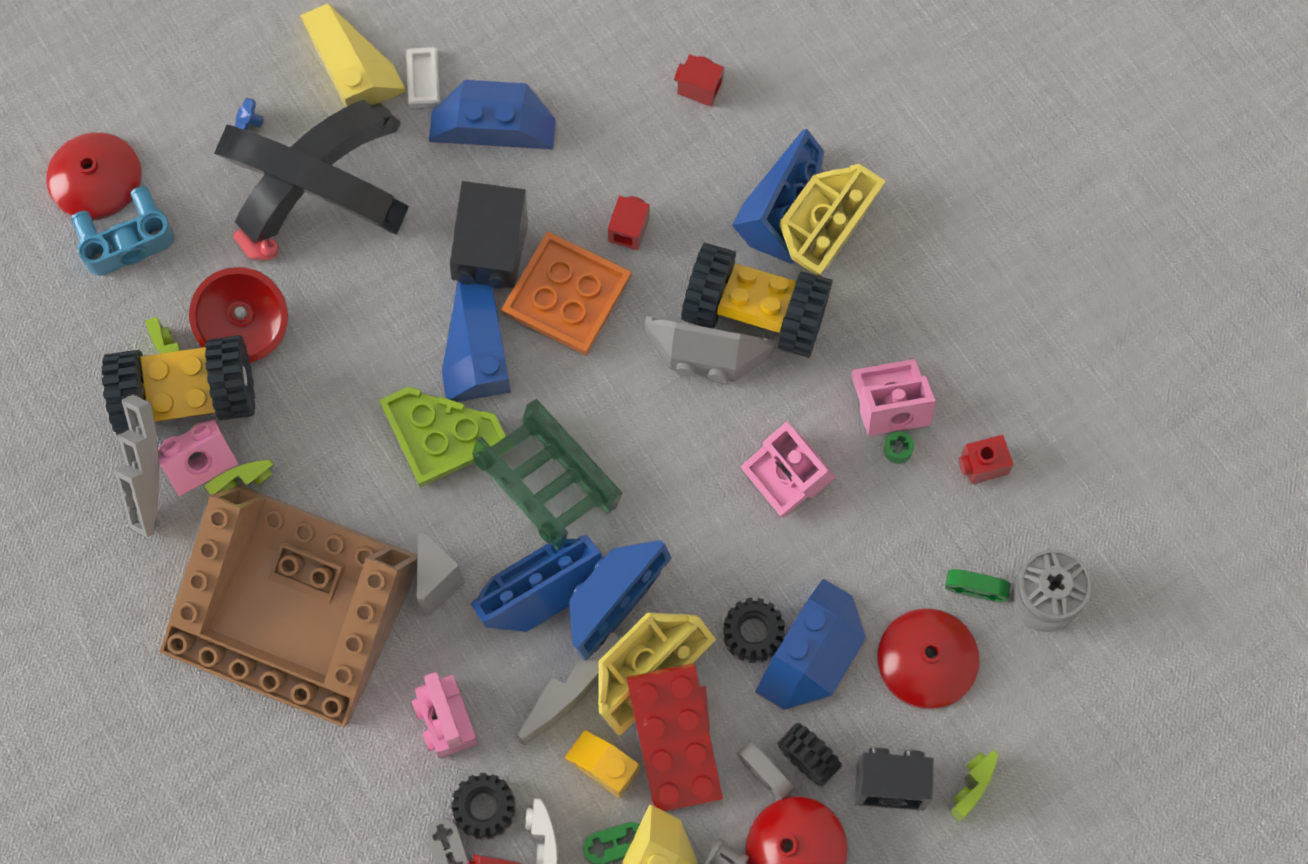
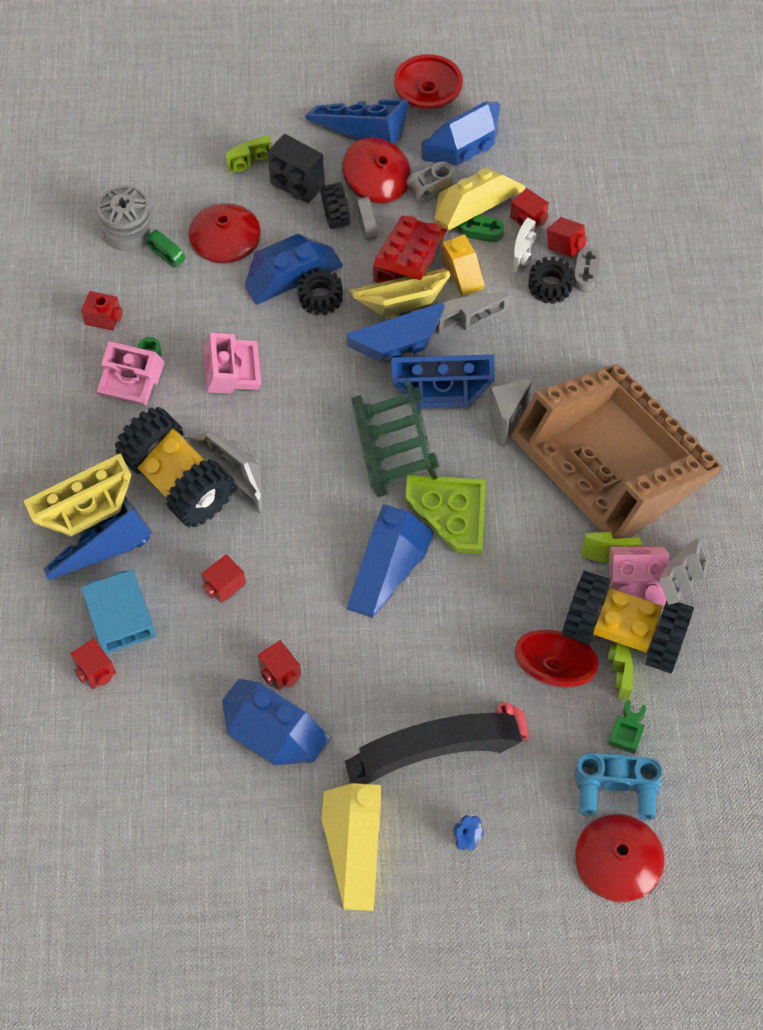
camera: 150 degrees left, 10 degrees down
(135, 291) = (627, 730): none -> green plate
(312, 176) = (457, 717): black arch -> none
(423, 78) = (303, 793): white tile -> none
(453, 728) = (547, 333): bright pink brick -> none
(488, 235) = (334, 616): black slope -> none
(517, 170) = (279, 666): none -> red brick
(566, 293) = (301, 559): orange plate -> none
(713, 141) = (118, 611): none -> dark azure brick

